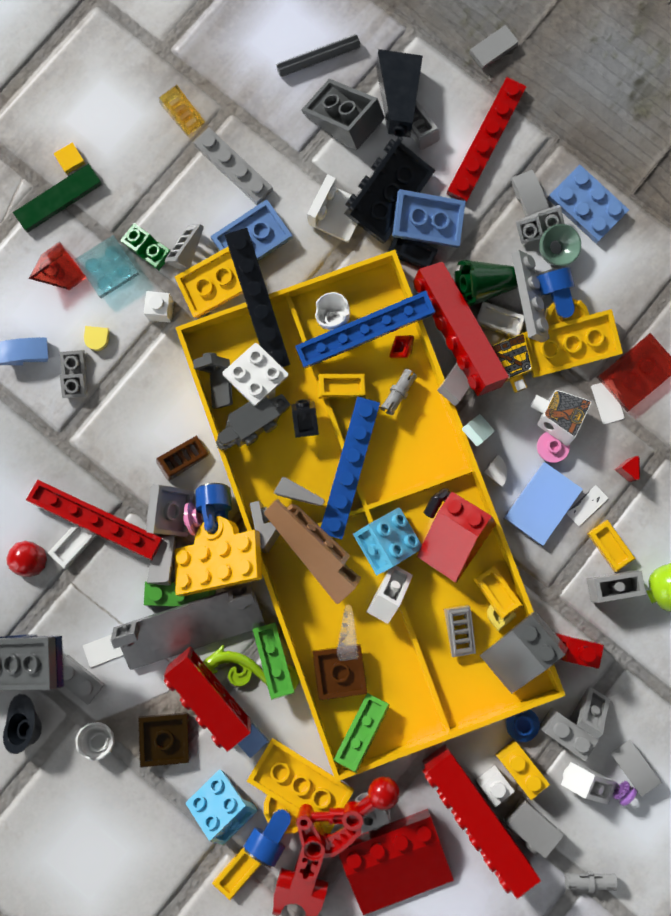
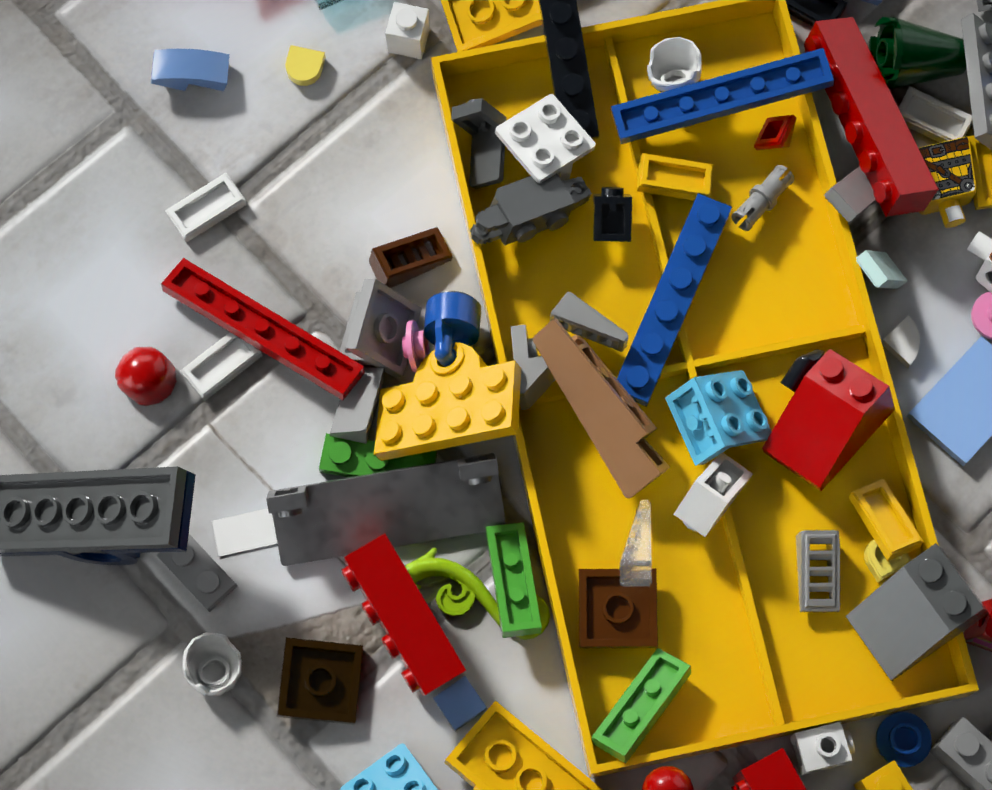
camera: 10 degrees right, 10 degrees down
(22, 725) = (100, 621): black piece -> none
(47, 442) = (206, 207): none -> white tile
(73, 376) = (261, 112): light grey slope -> none
(475, 742) = (822, 748): none -> white brick

